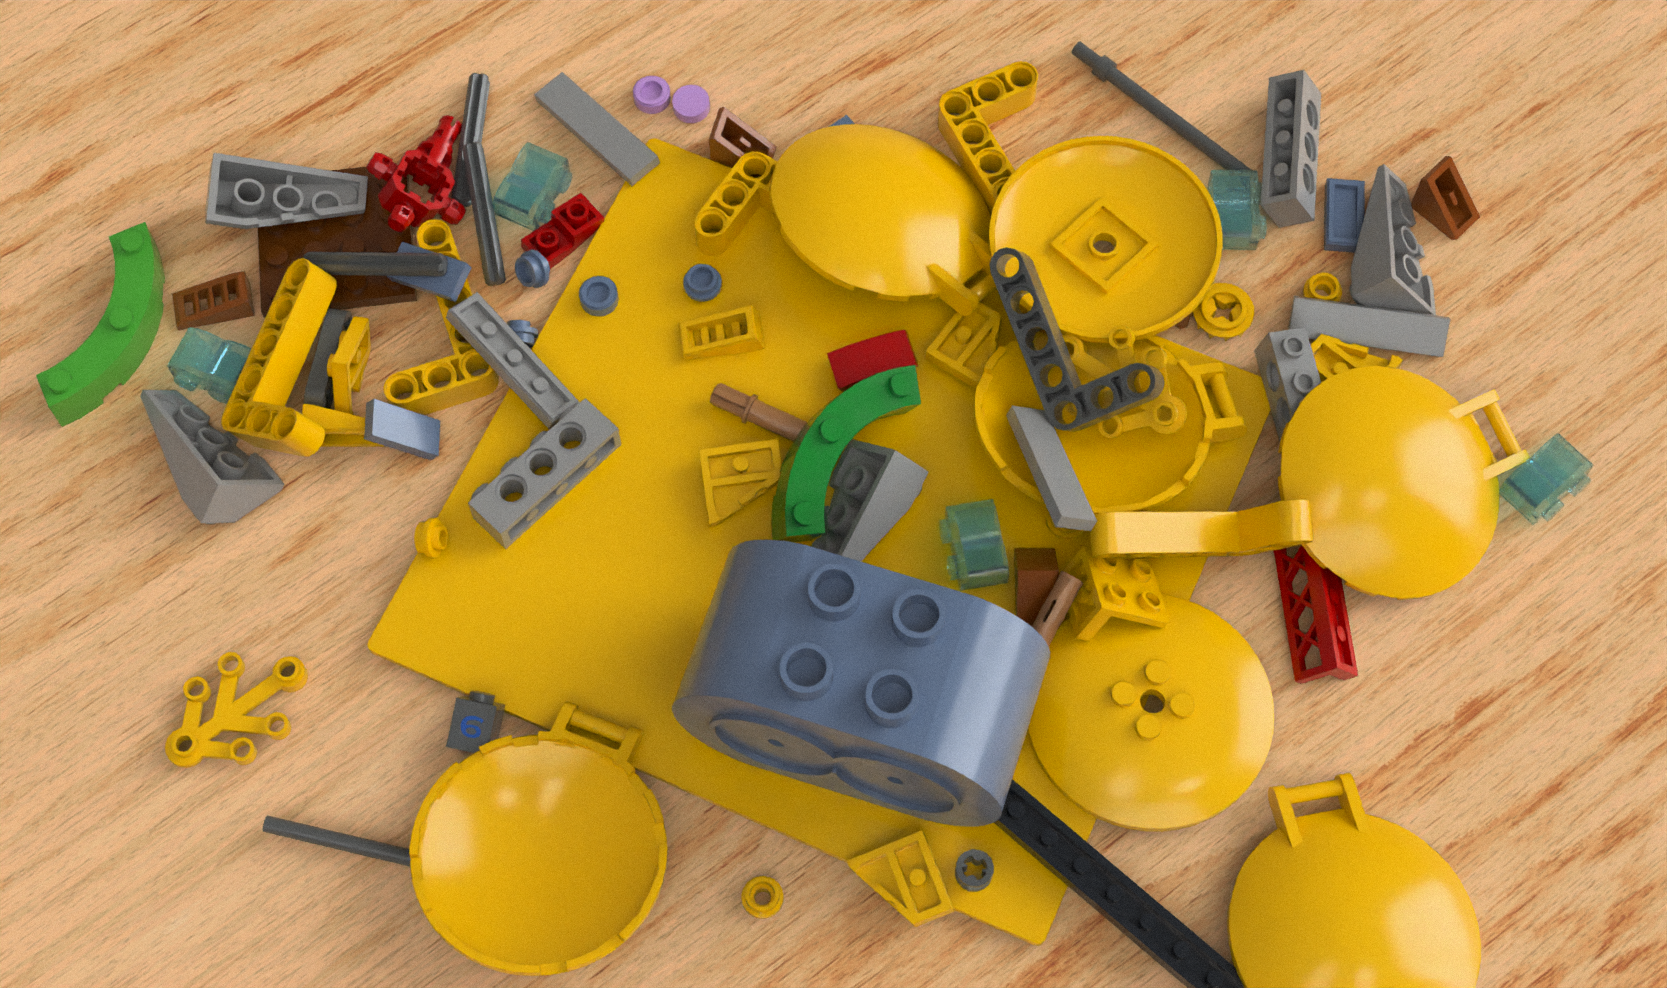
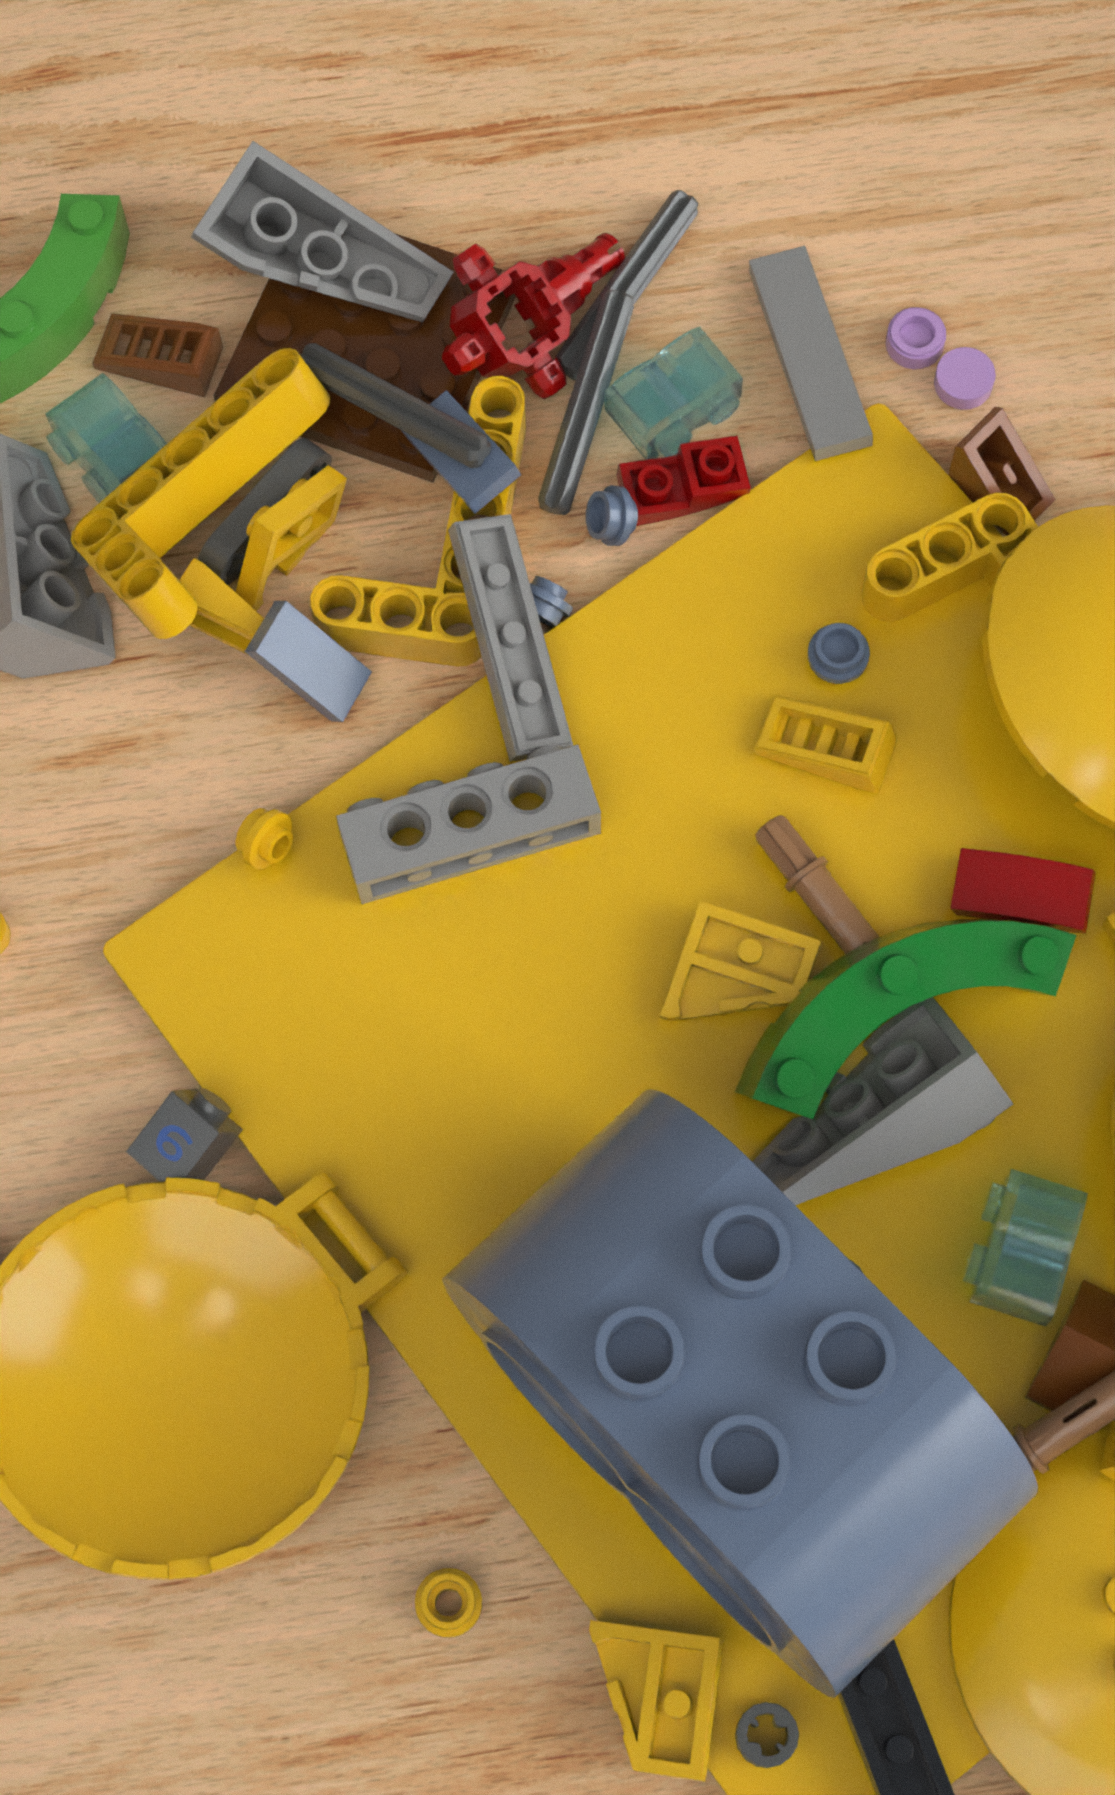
camera: 30 degrees right, 5 degrees up
(598, 296) = (682, 600): sand blue tile -> none

